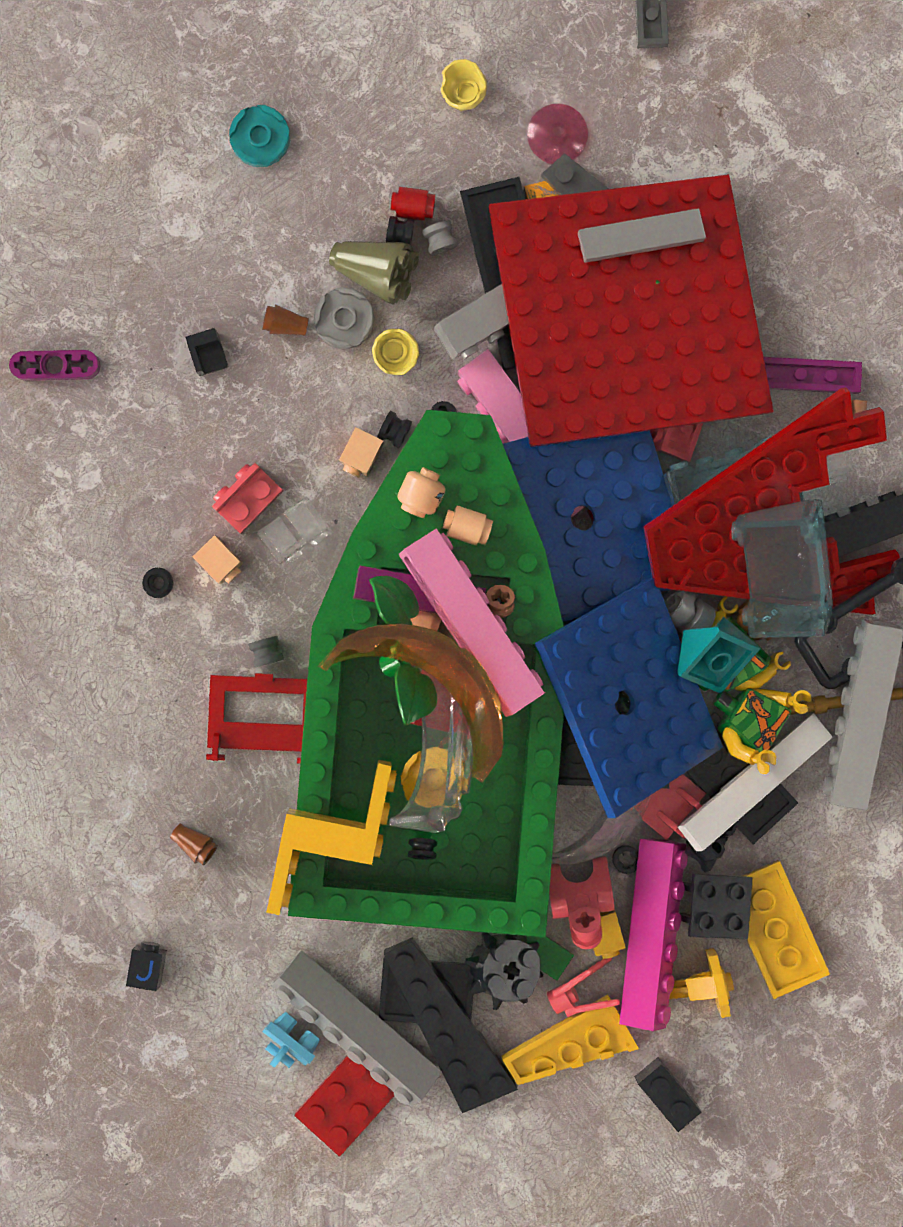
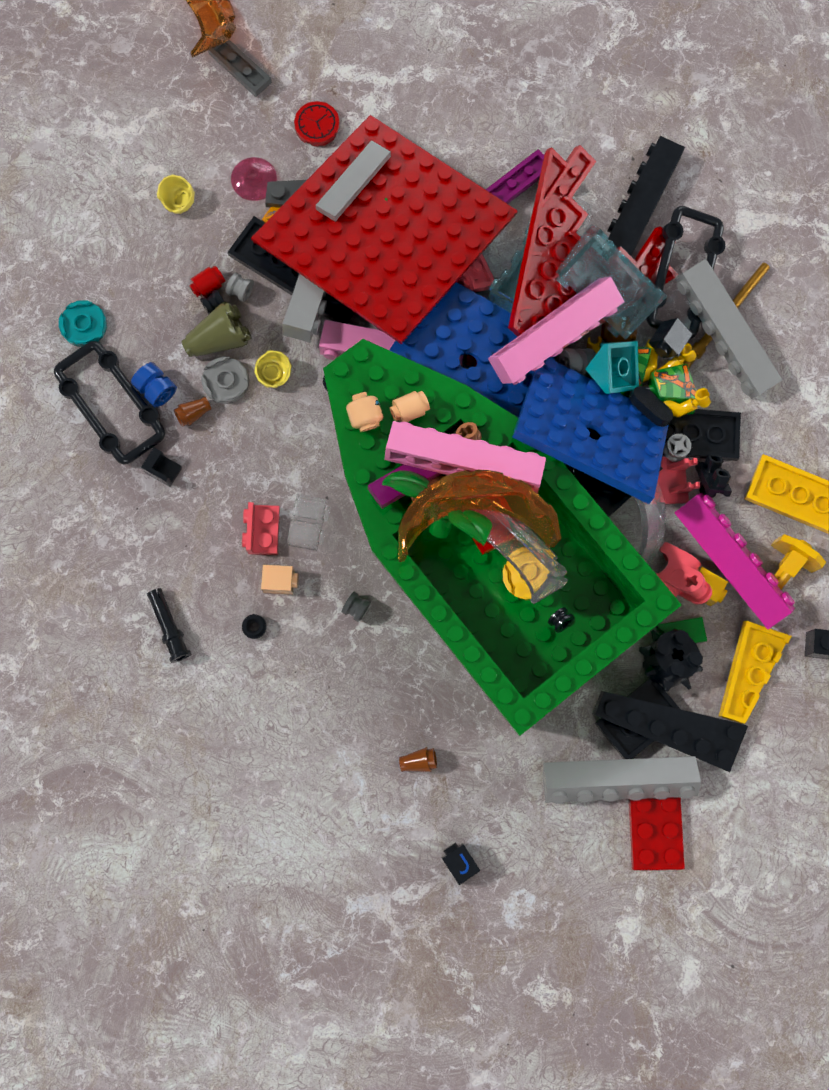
camera: 40 degrees left, 10 degrees down
(32, 373) = (65, 555): magenta beam -> none
(75, 523) = (171, 635): none -> black pin
(190, 194) = (109, 442): none -> black bar
(251, 735) = (400, 658): red piece -> none
(270, 263) = (150, 381): none -> blue wheel
(301, 1050) = (589, 831): medium azure hips -> none
(331, 837) = (502, 655): yellow bracket -> none
(360, 453) = (305, 443): light nougat brick -> none
(394, 429) = (312, 413): black wheel -> none
(564, 996) = (721, 645): coral plant -> none
(619, 865) = (677, 527): black bush -> none
(671, 132) = (317, 123): none -> red tile
(686, 572) = (556, 330): none -> bright pink brick
(708, 786) = (680, 443): none -> light grey wheel
(711, 722) = (651, 406): none -> black tile
(719, 906) = (756, 508): black plate -> none
(751, 786) = (707, 424): white slope -> none
(797, 673) = (670, 338): none -> black brick

